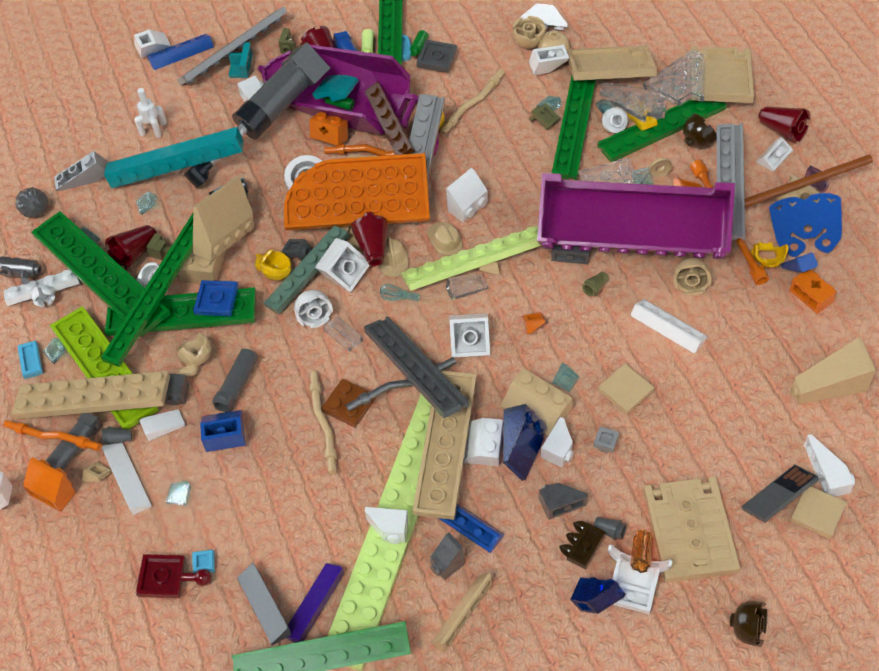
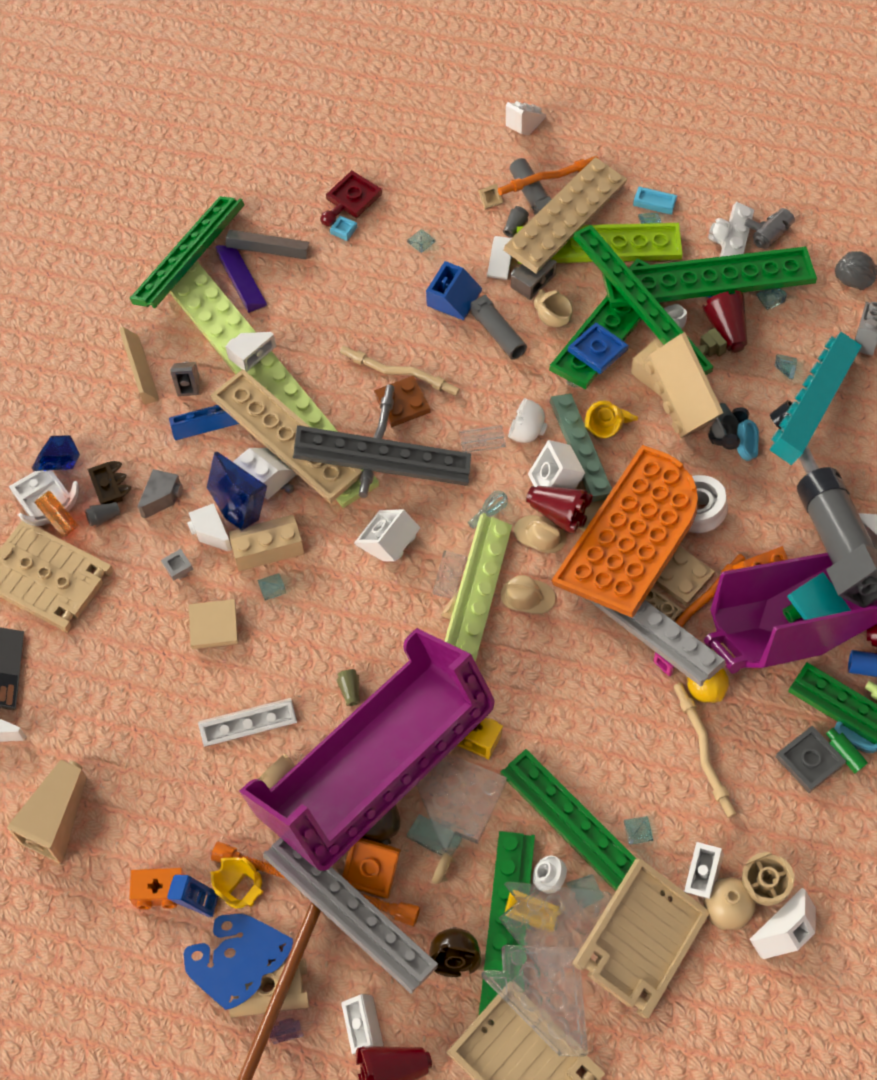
camera: 125 degrees right, 5 degrees up
(48, 484) = (498, 156): orange slope -> none
(126, 477) = (468, 211): white slope -> none
(297, 248) = (614, 452): dark grey bracket -> none
(389, 120) = (710, 617): reddish brown plate -> none
(466, 196) = (554, 637): white slope -> none
(533, 321) = (358, 603): orange slope -> none
(544, 116) = (619, 805): olive bracket -> none

